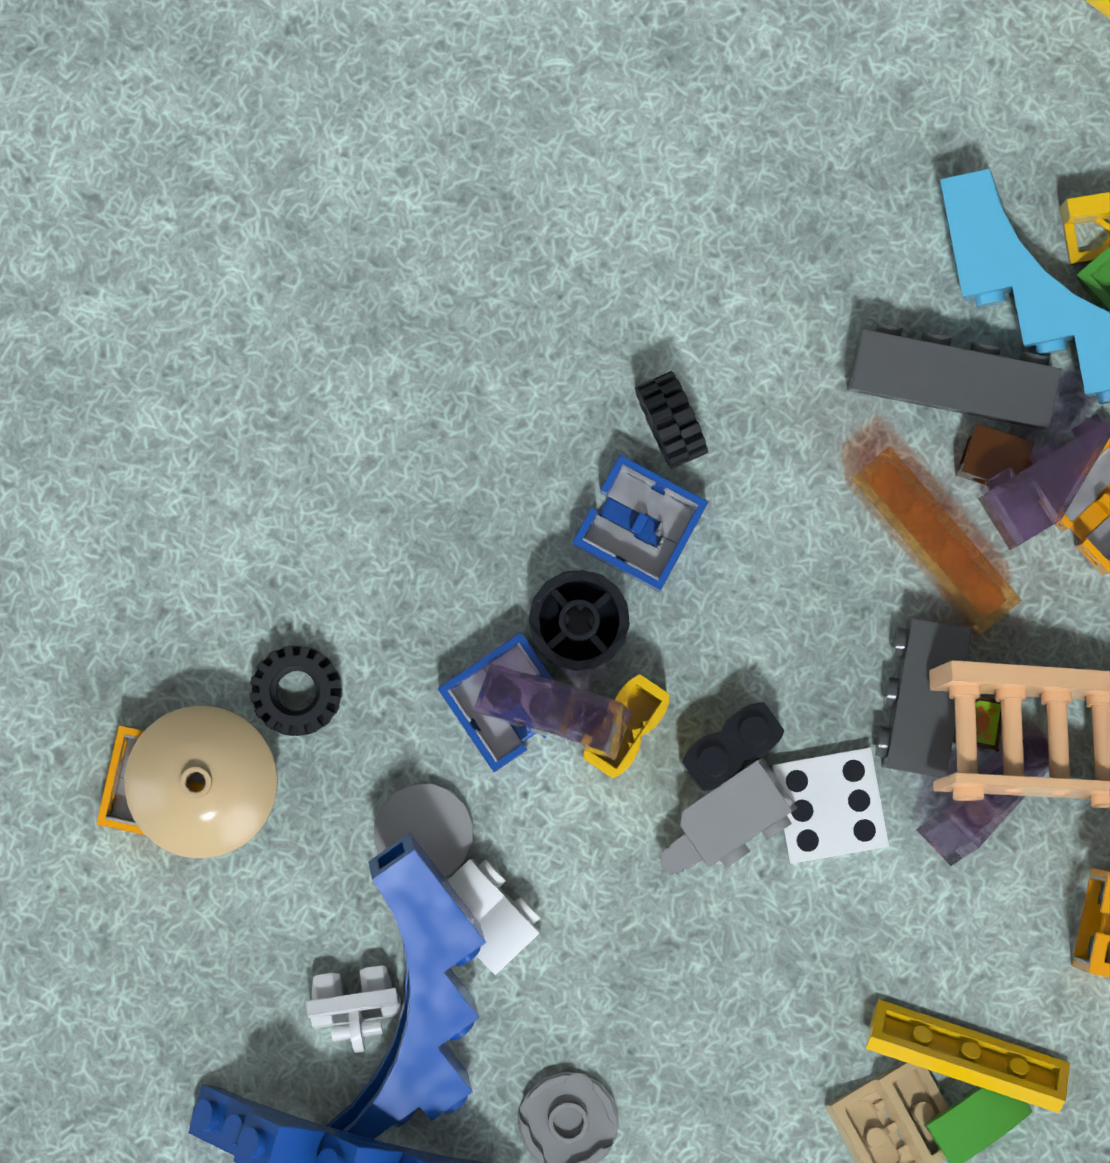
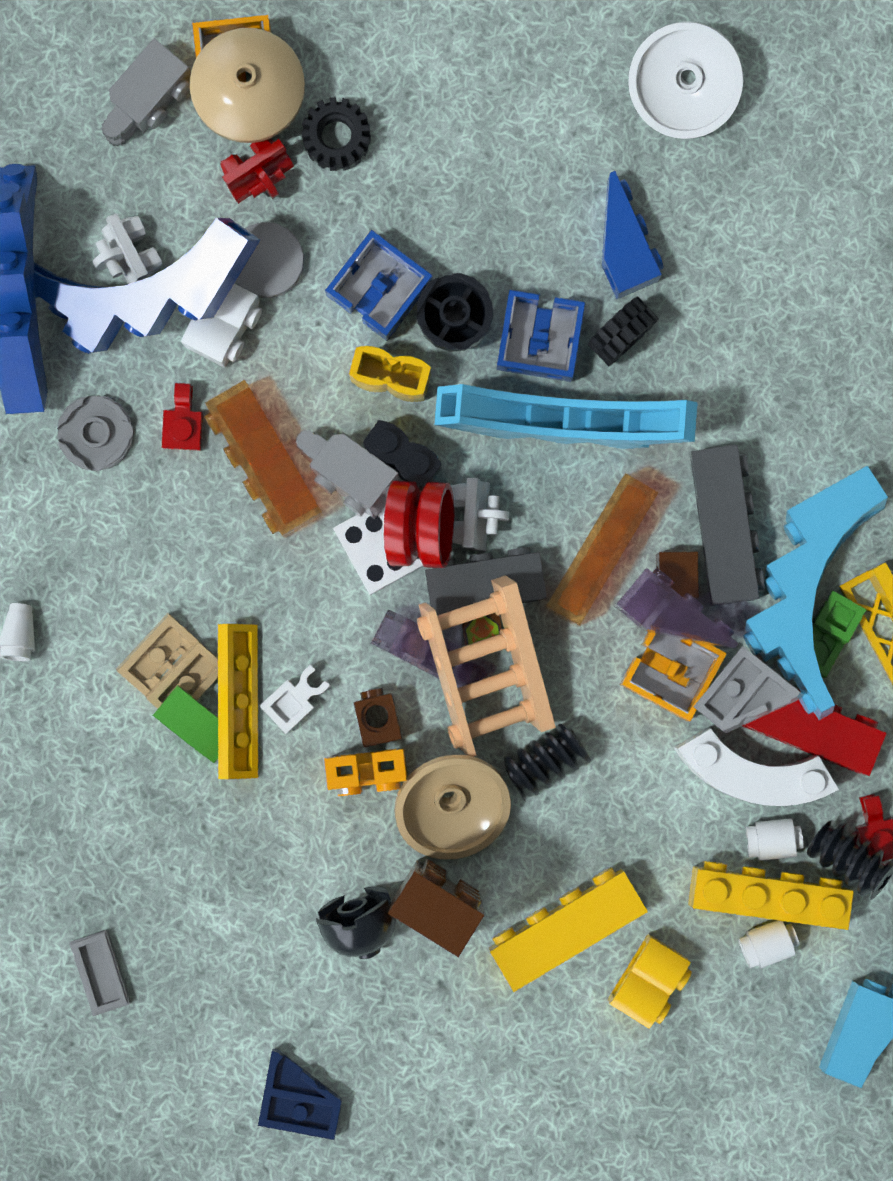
camera: 70 degrees right, 0 degrees up
(160, 913) = (145, 93): none -> light grey hinge
(313, 804) = (258, 172): none -> red hips
(413, 239) = (678, 106): none -> white dish
(554, 710) = (383, 314): clear purple slope -> none
(567, 382) = (625, 251): none -> blue slope
(596, 1009) = (182, 427): none -> red plate
(678, 921) = (263, 459): none -> clear orange brick
(760, 527) = (565, 420): none -> medium azure arch
(833, 755) = (419, 524): none -> red wheel
(837, 674) = (480, 514): none -> white hips
(991, 989) = (290, 702): none -> white plate
(1069, 889) = (369, 734): none -> reddish brown brick

